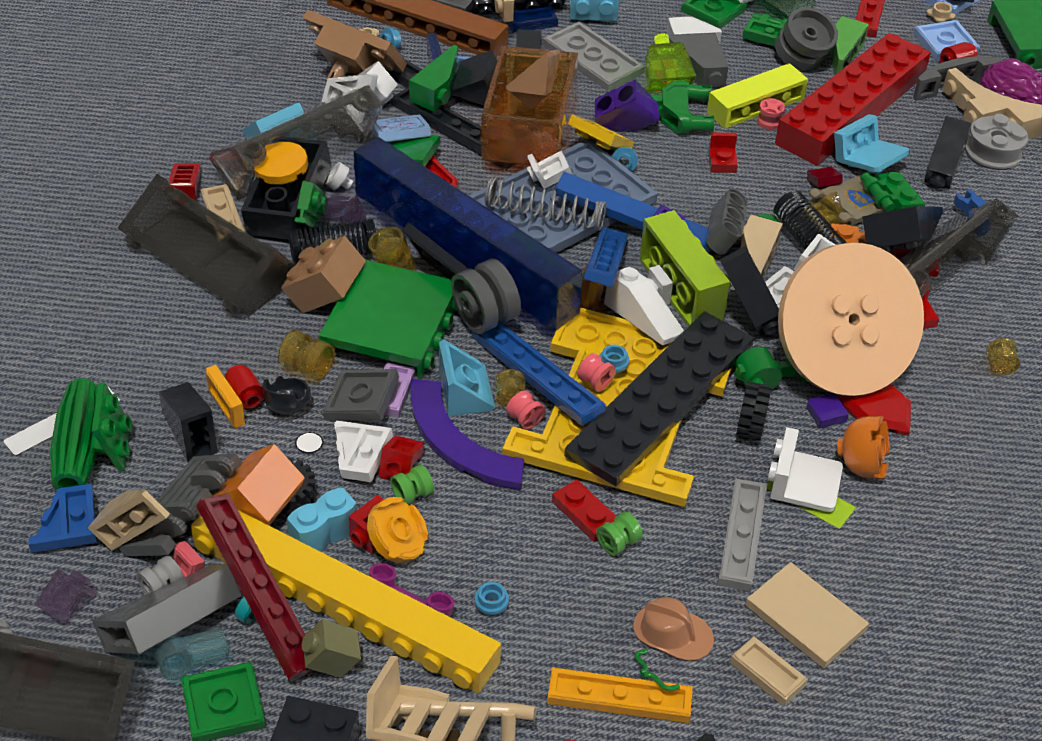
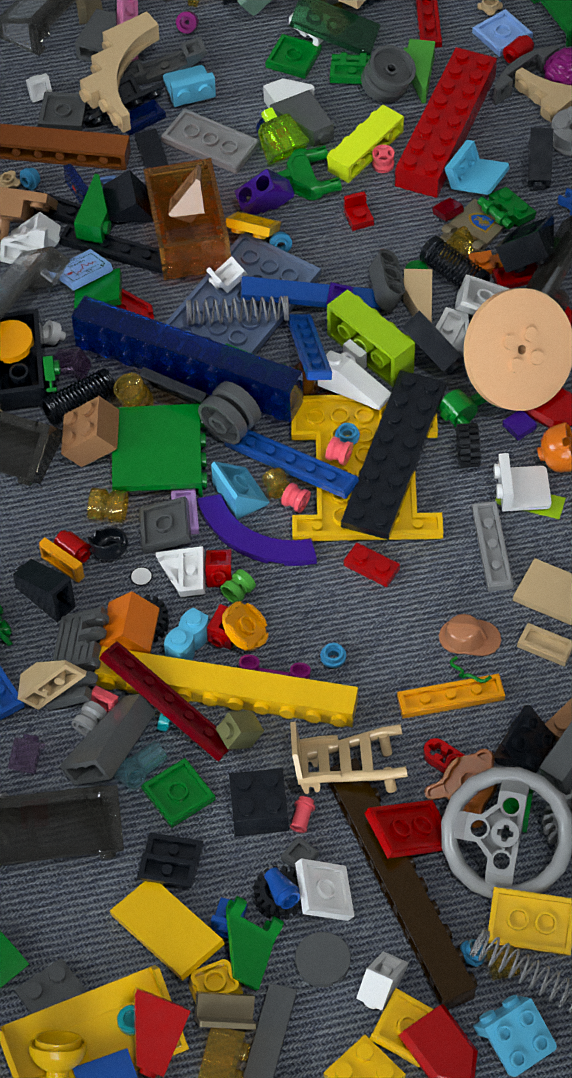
camera: 15 degrees left, 10 degrees up
(619, 533) = (406, 574): bright green wheel -> none

